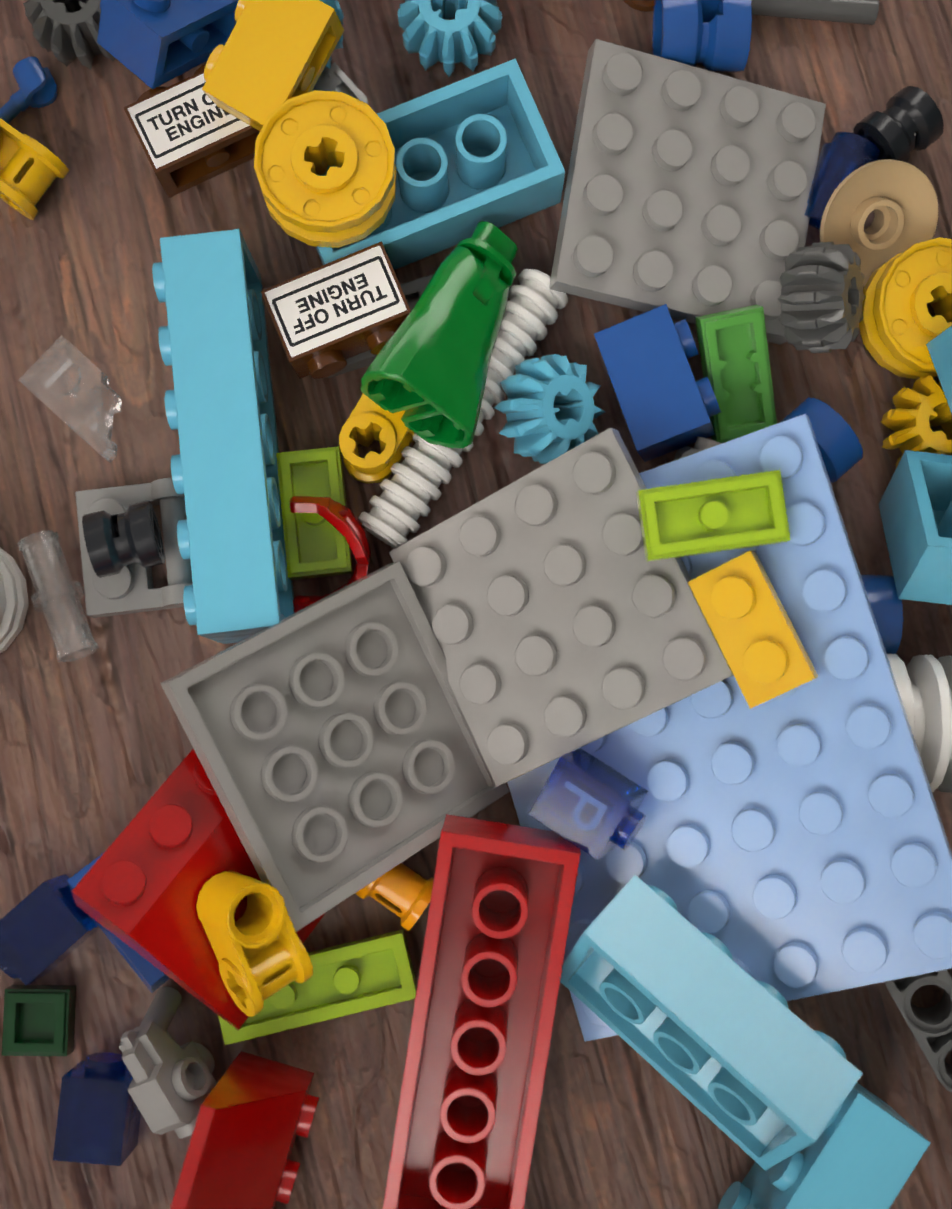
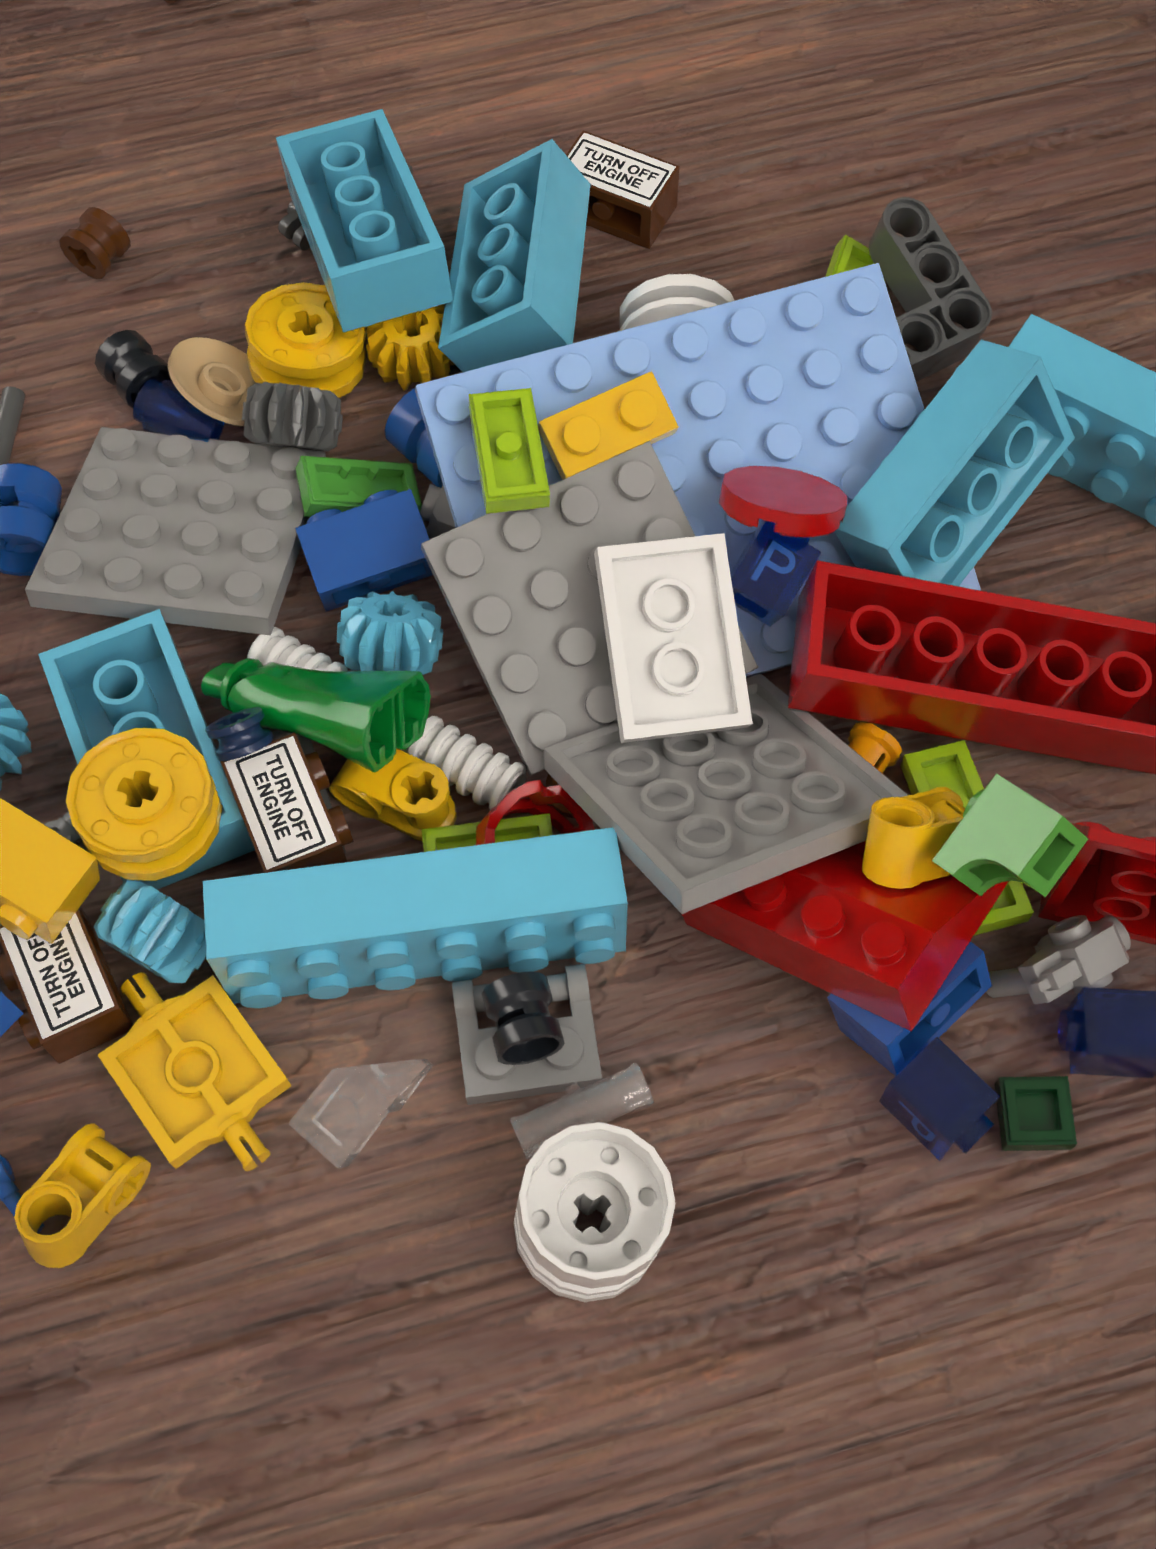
camera: 90 degrees left, 20 degrees down
(105, 247) = (194, 1071): none -> yellow plate
(210, 1026) = (1009, 839): none -> bright green brick
(228, 196) = (153, 931): none -> medium azure gear
(408, 257) = (239, 734): none -> dark blue bush
(503, 693) = (672, 637): none -> white plate
(655, 821) = (790, 498): none -> tile

